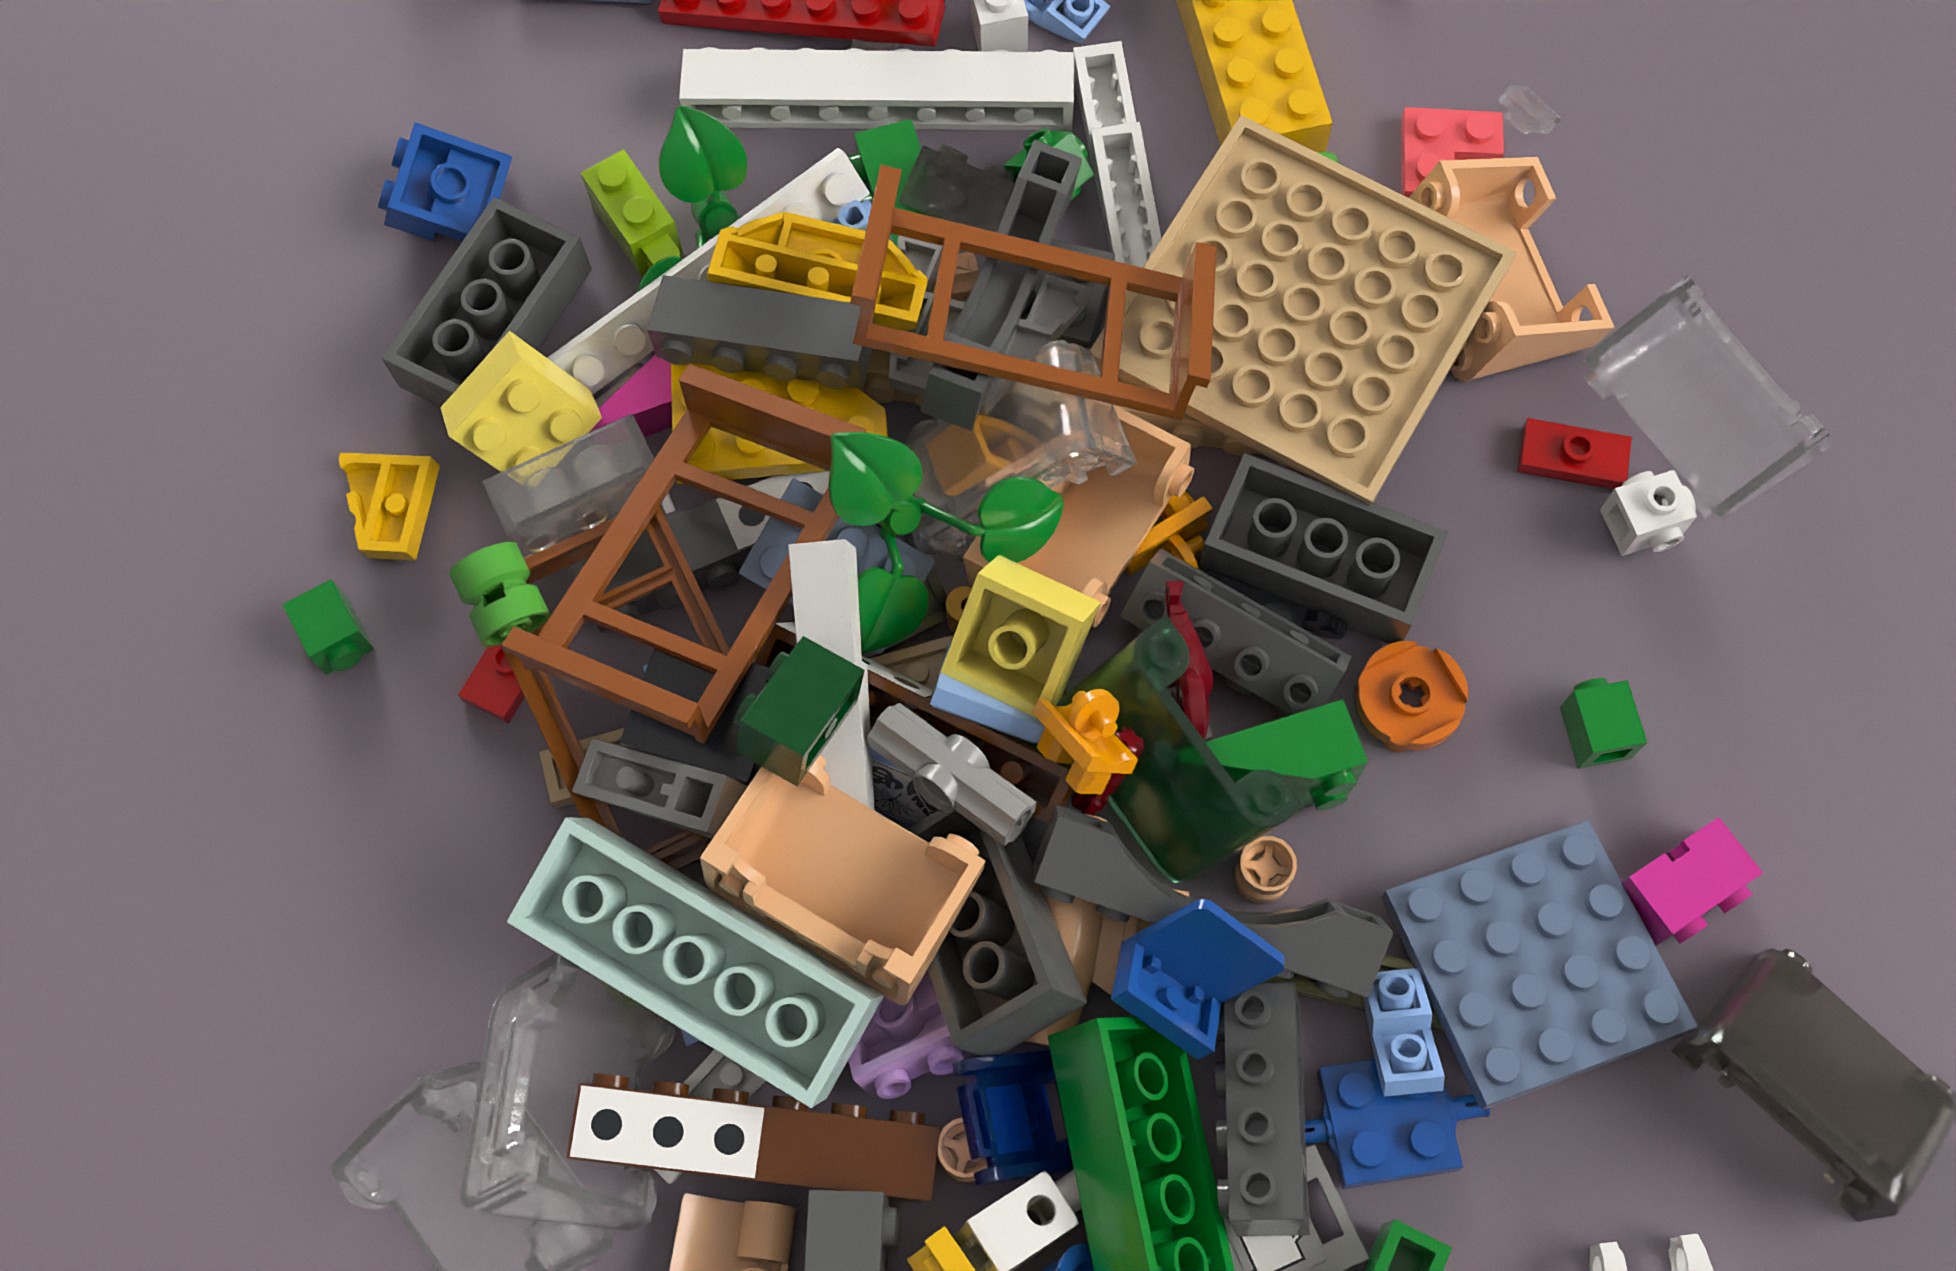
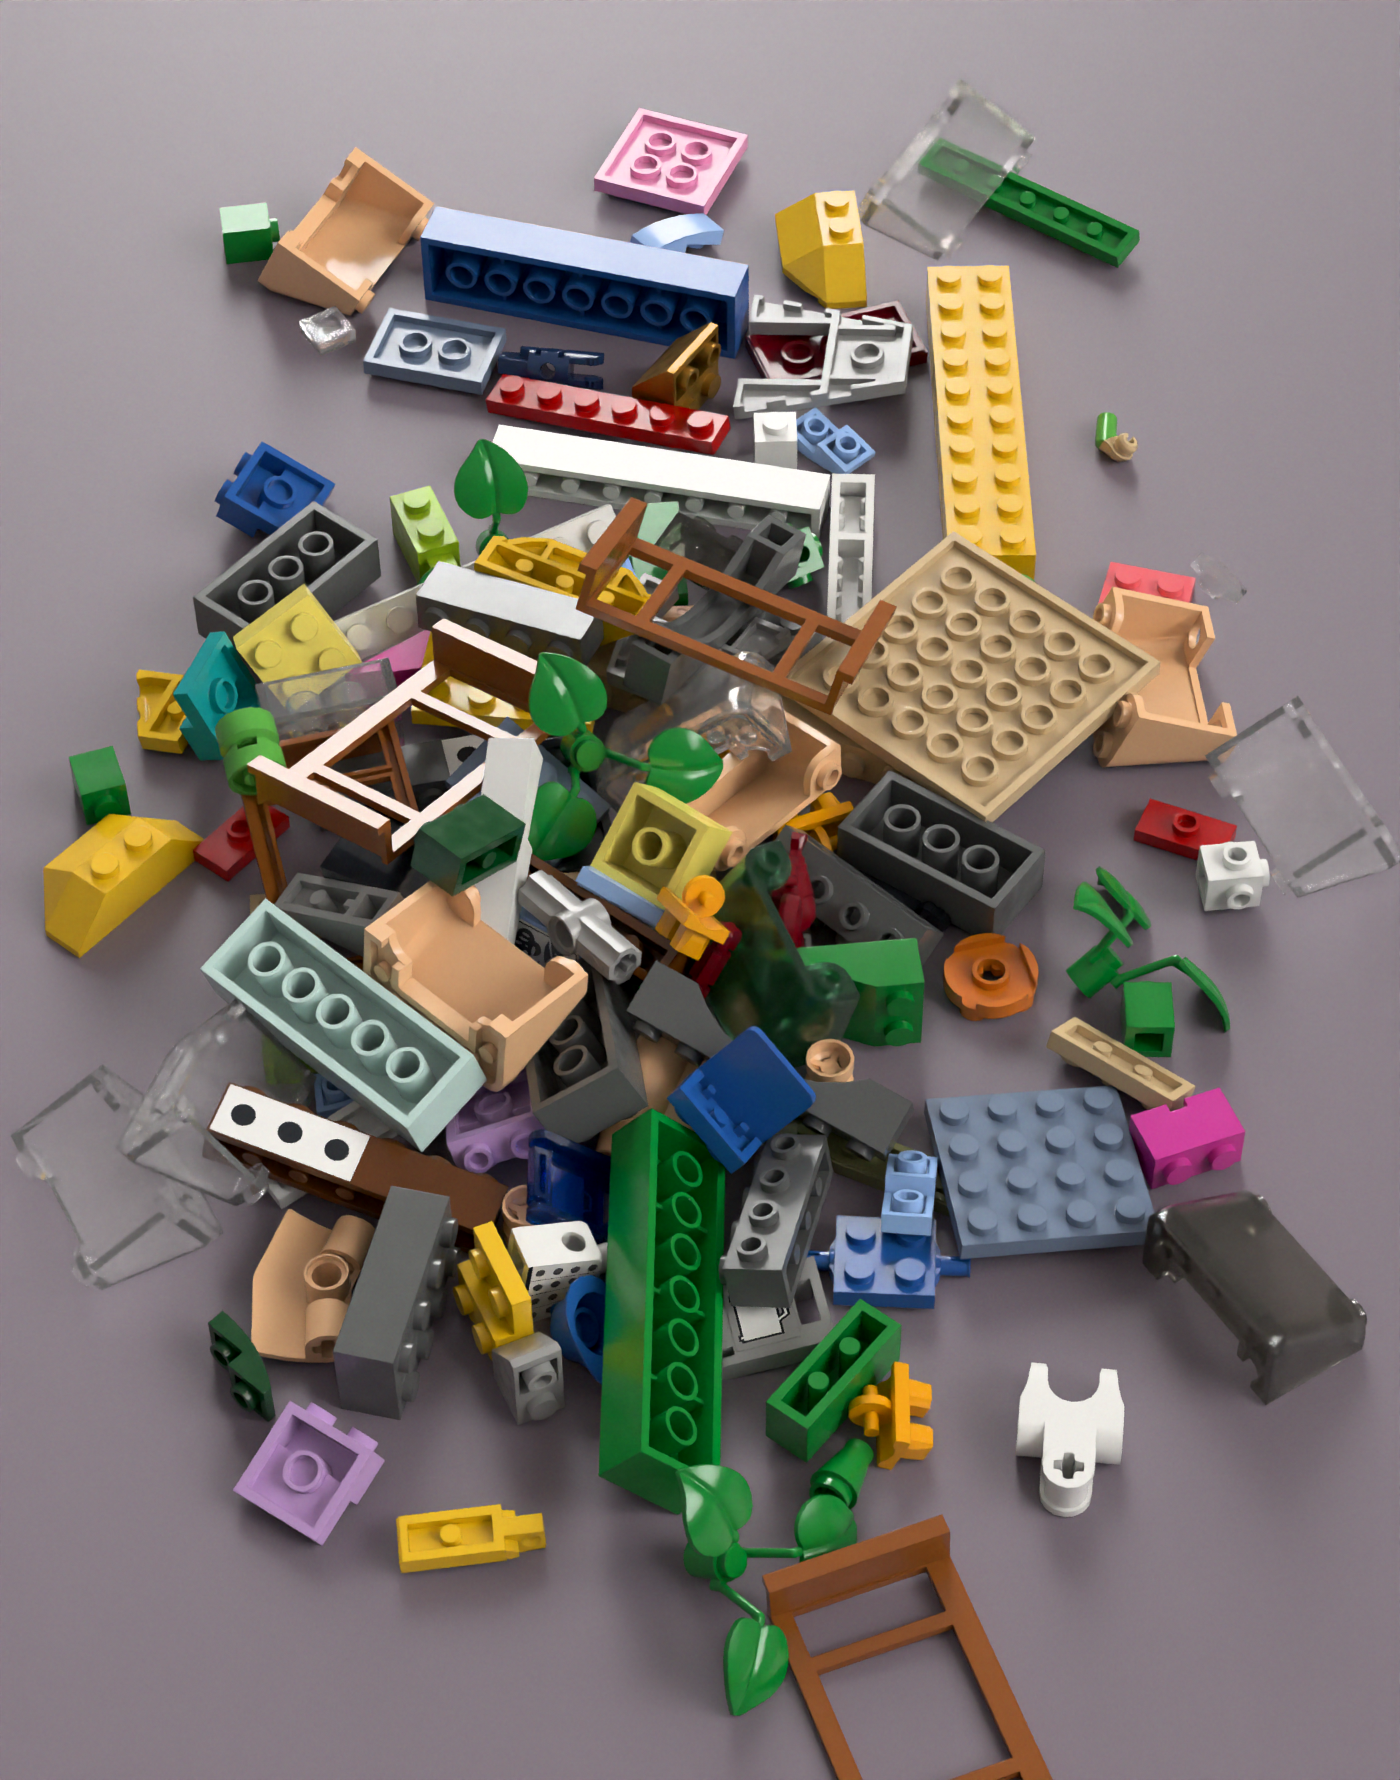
camera: 10 degrees right, 20 degrees down
(370, 747) = (111, 876): none -> yellow wedge
(439, 493) = (210, 690): none -> teal plate
(1537, 662) = (1101, 963): none -> green plant
(1590, 796) = (1118, 1065): none -> tan plate

